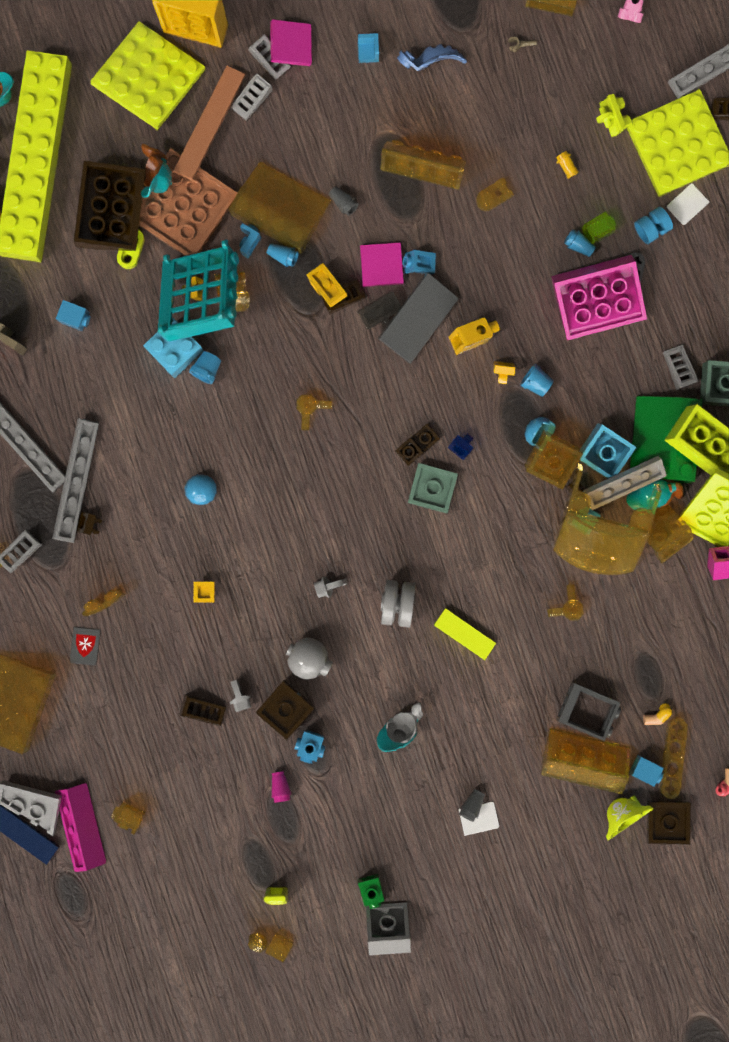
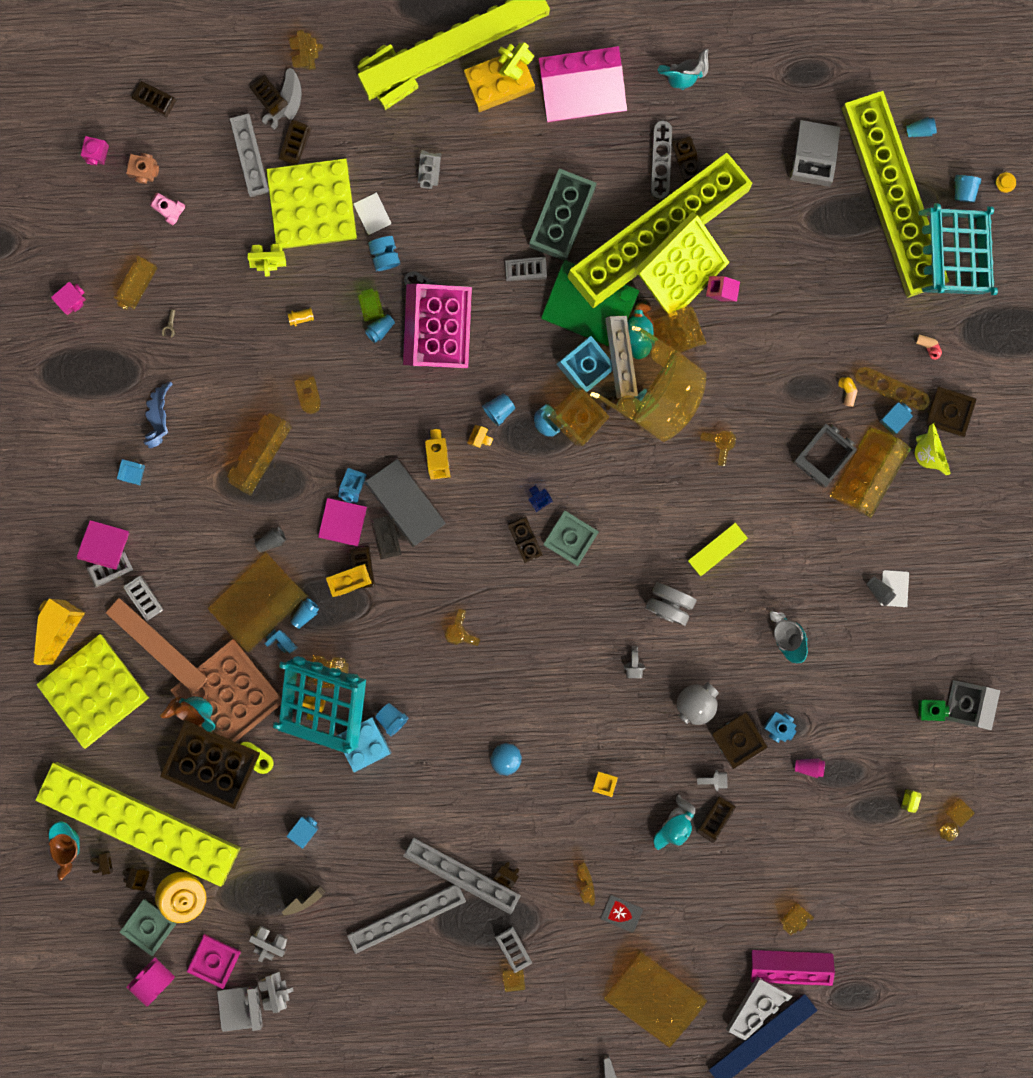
camera: 65 degrees left, 0 degrees up
(183, 674) = (677, 827): none -> teal hair

